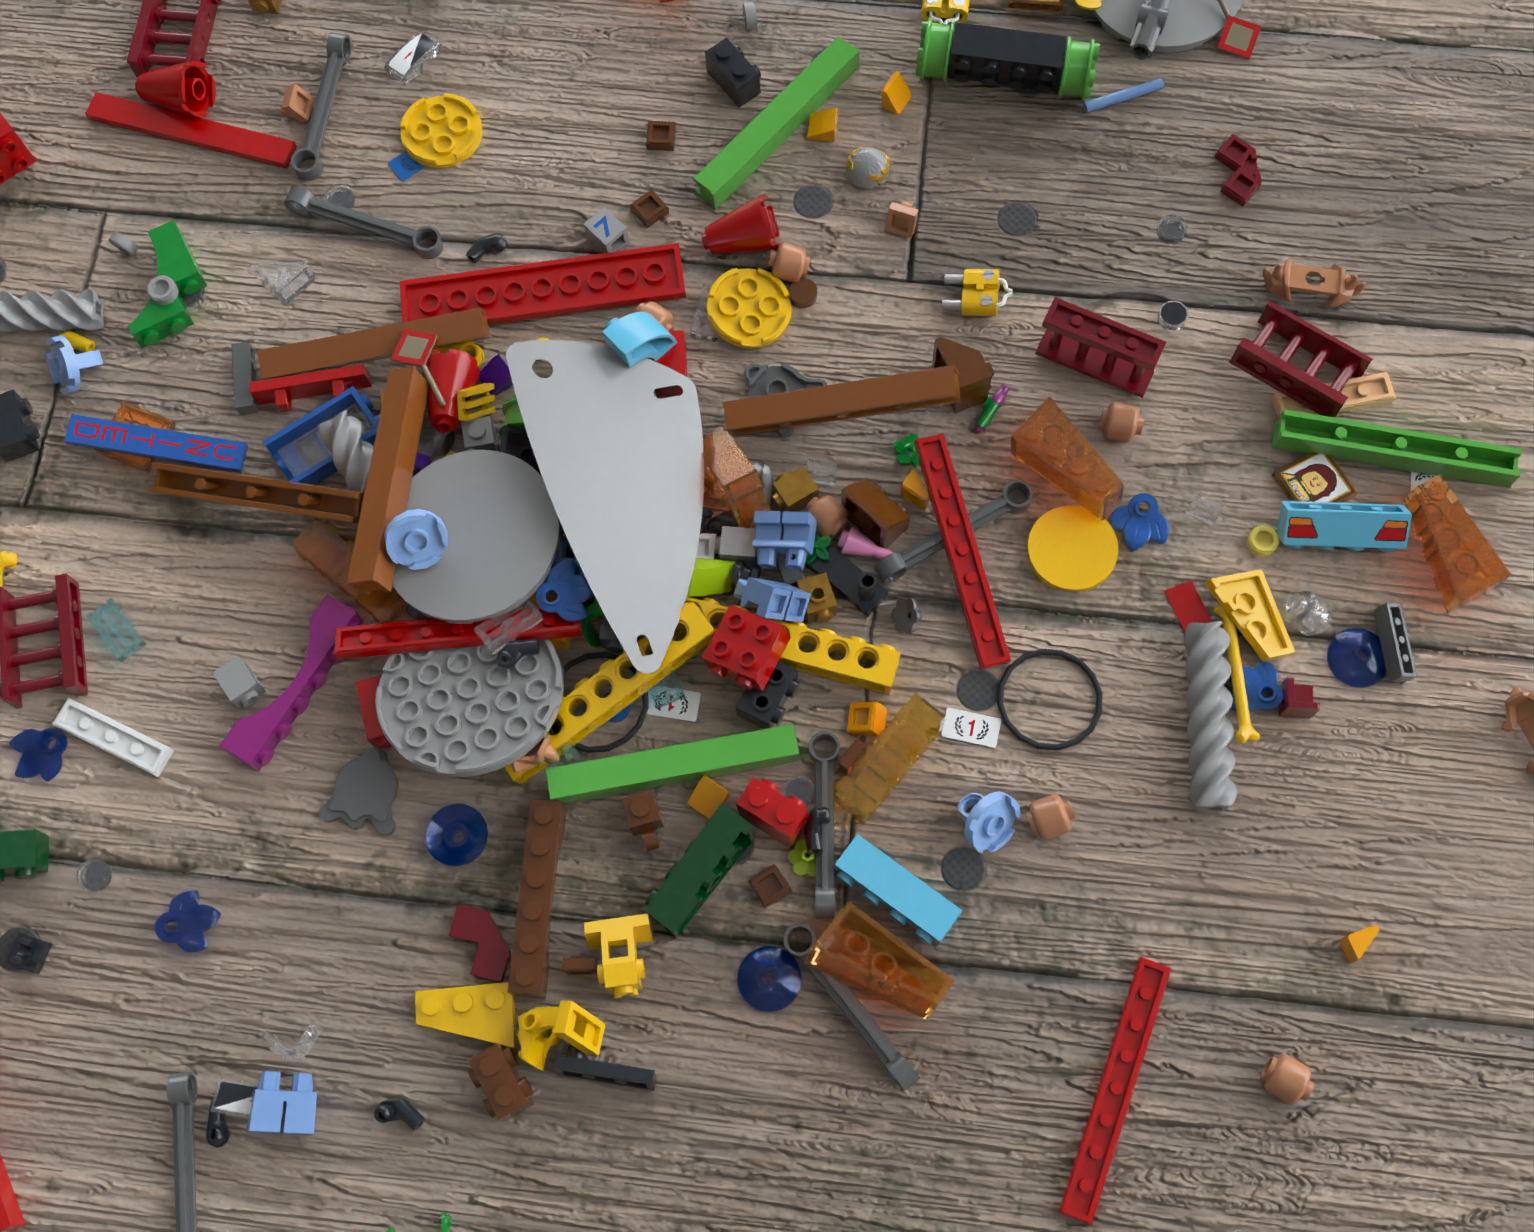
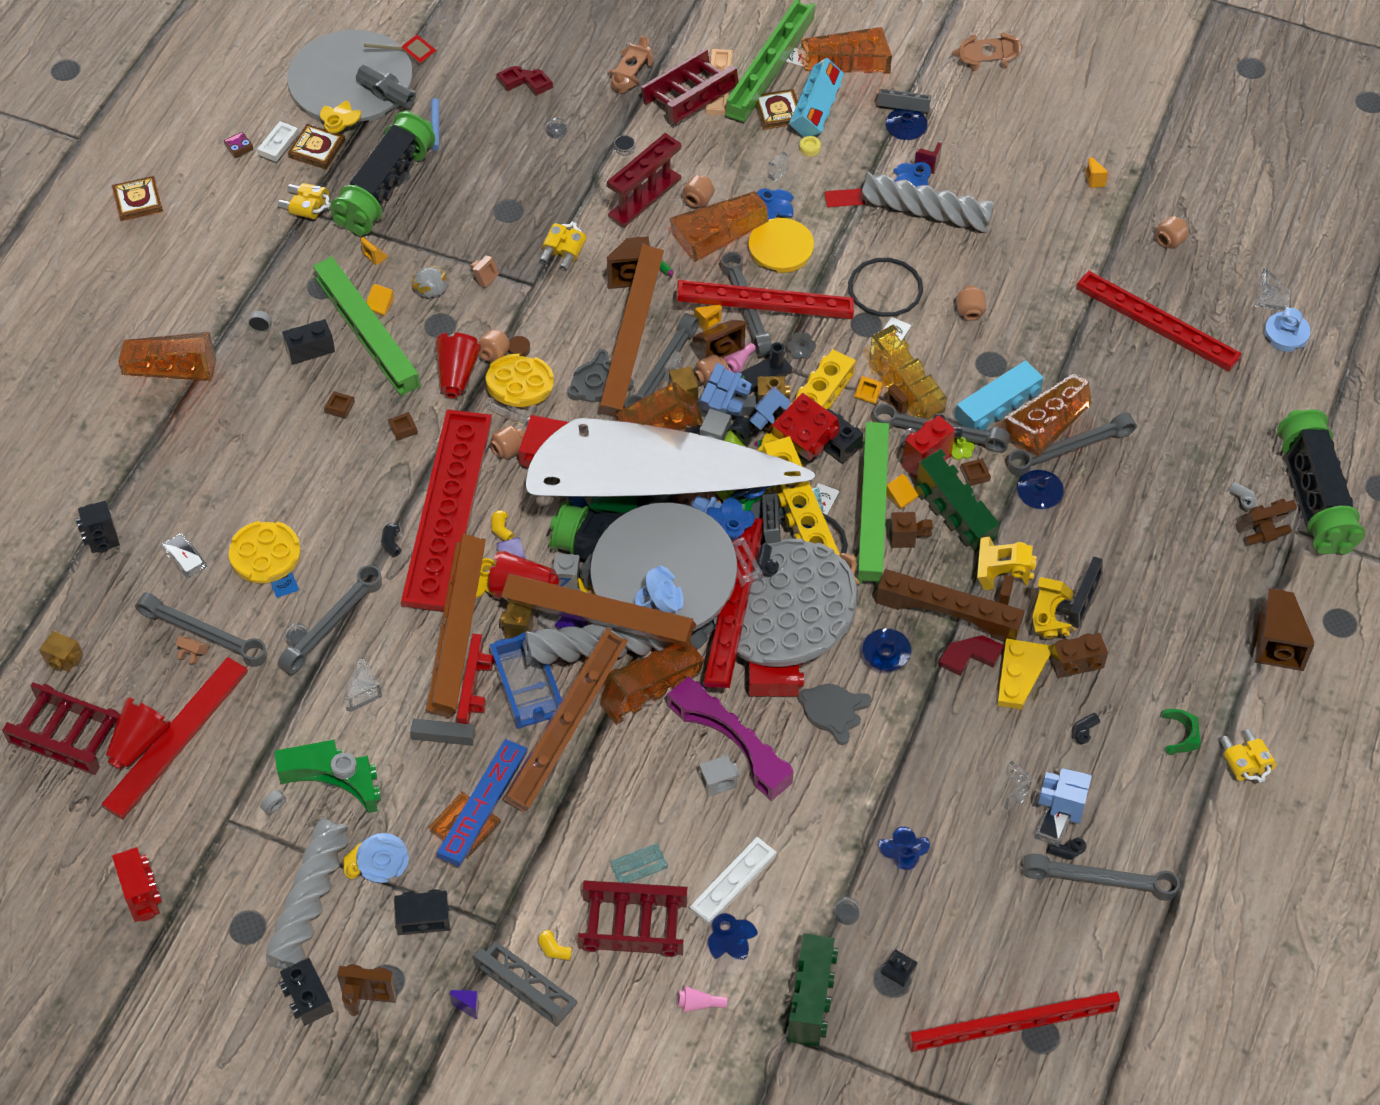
camera: 80 degrees left, 15 degrees down
(415, 350) = (482, 583): piece -> none
(484, 401) = (536, 556): yellow tile -> none
(584, 643) = (771, 518): none -> dark grey piece
(606, 231) = (415, 454): light grey brick -> none
(638, 337) = (537, 431): medium azure brick -> none
(888, 469) = (686, 329): none -> dark grey piece
(907, 450) = (671, 315): green plant -> none
(989, 820) = (964, 333): light blue tile -> none
(1245, 729) = (939, 185): yellow piece -> none
(1254, 612) = (861, 161): yellow wing -> none
(1308, 613) = (872, 133): clear head -> none

